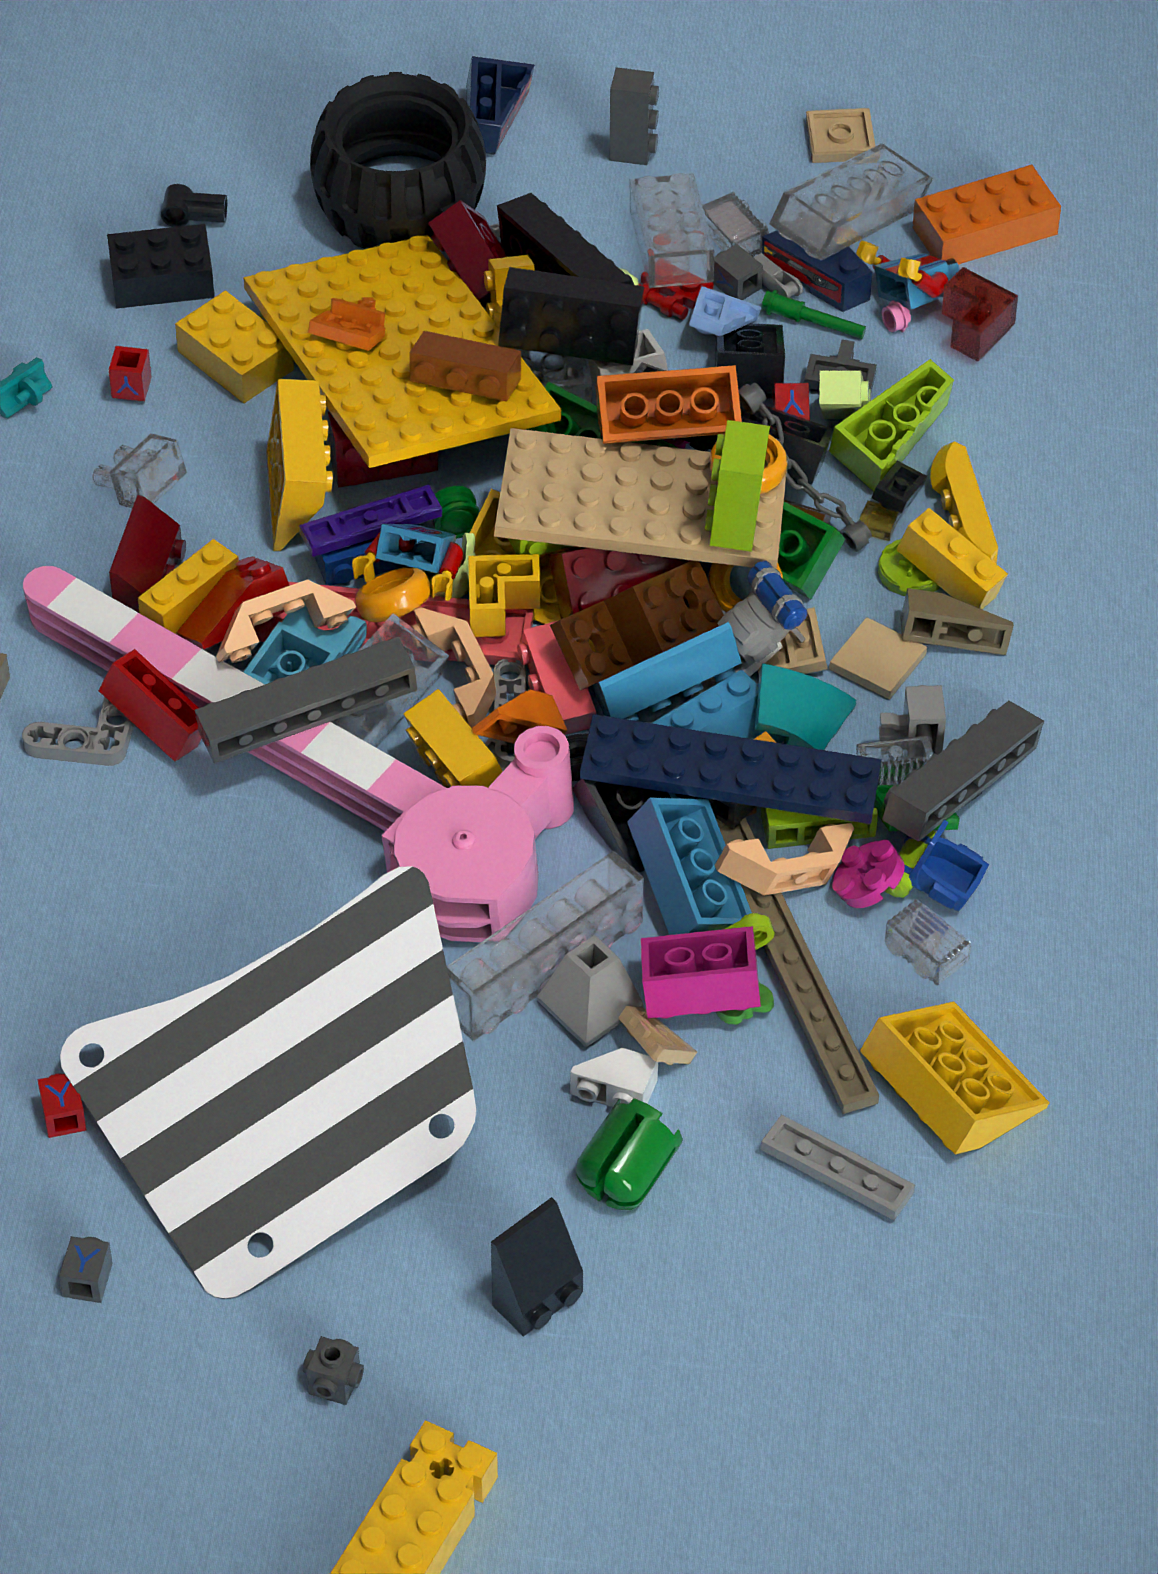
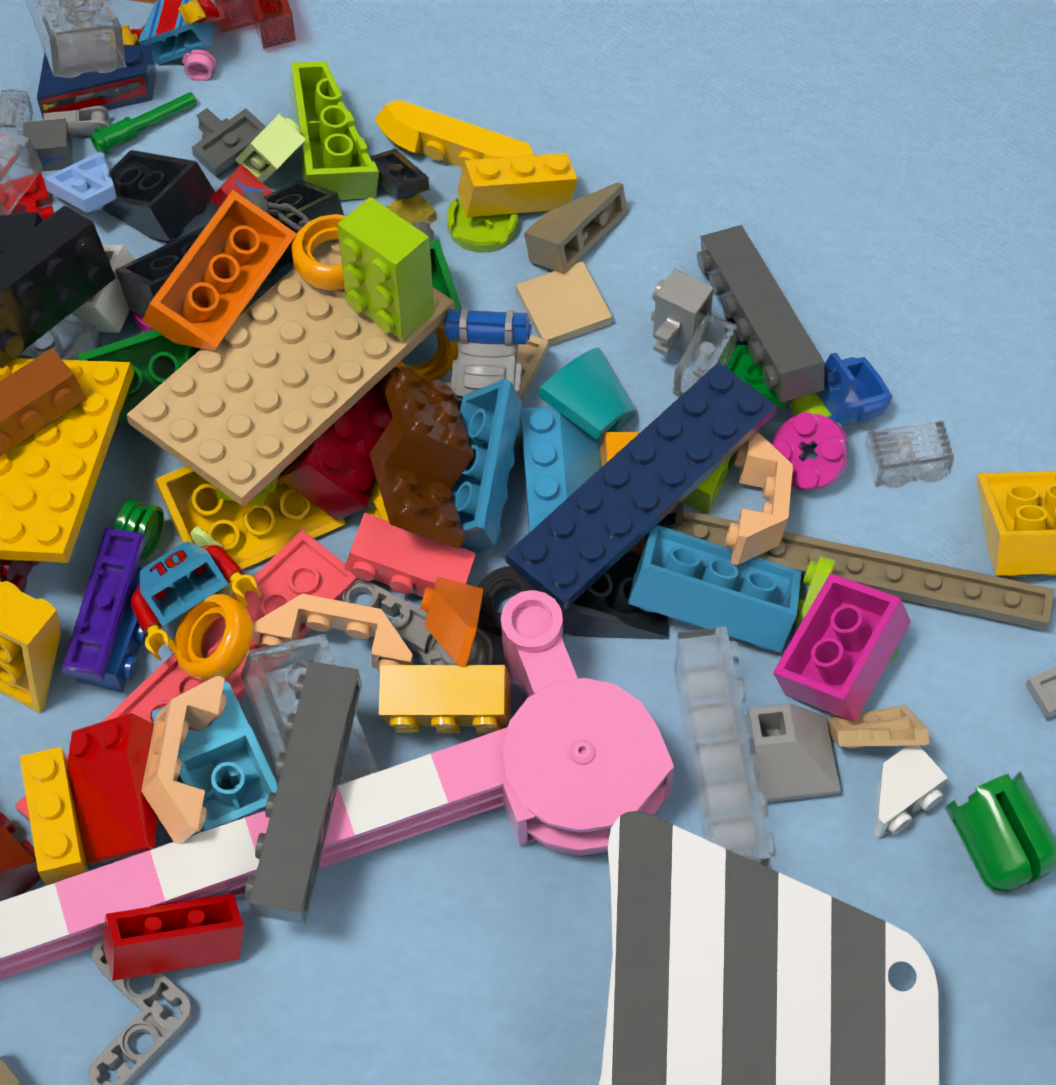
camera: 55 degrees left, 10 degrees up
(498, 585) = (274, 546): yellow brick -> none

